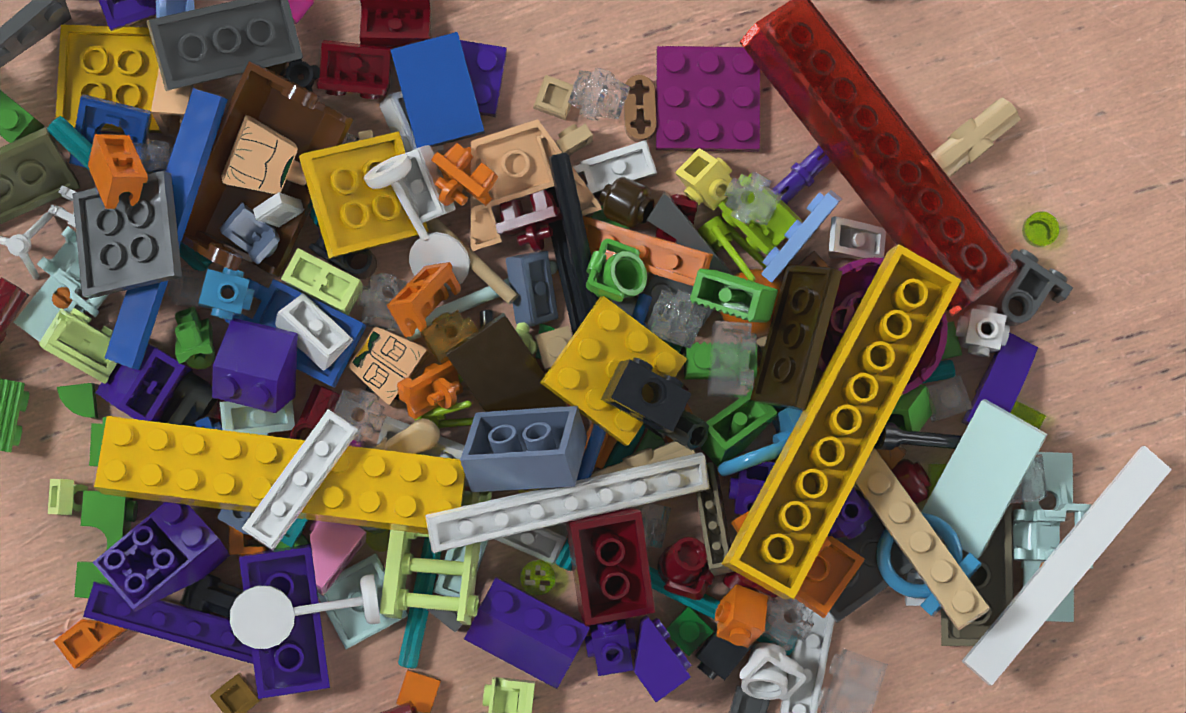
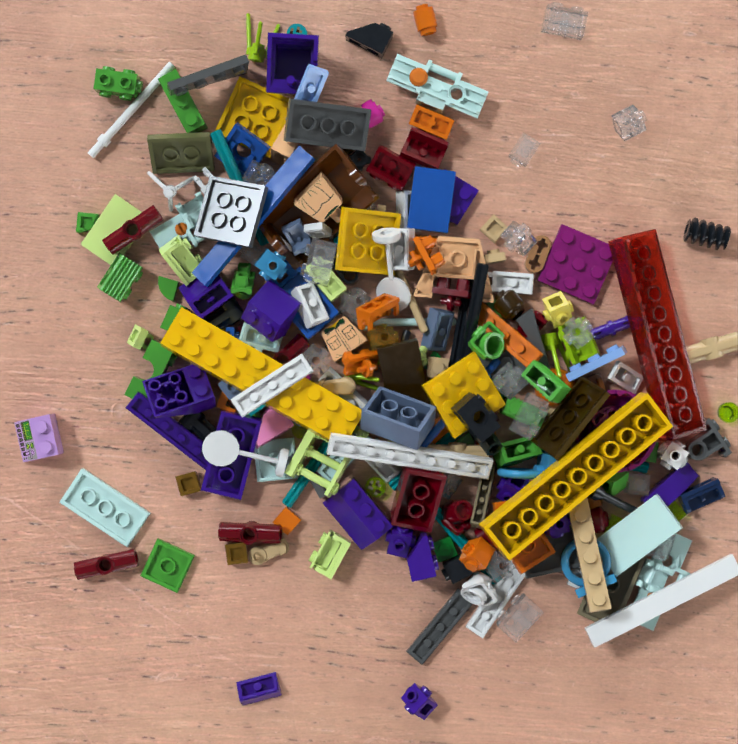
camera: 35 degrees right, 5 degrees up
(86, 640) = (120, 419): orange tile -> none
(116, 169) = (239, 173): orange hinge -> none
(299, 256) = (319, 262): none -> clear brick
(1055, 375) = (701, 495): none -> dark blue hinge

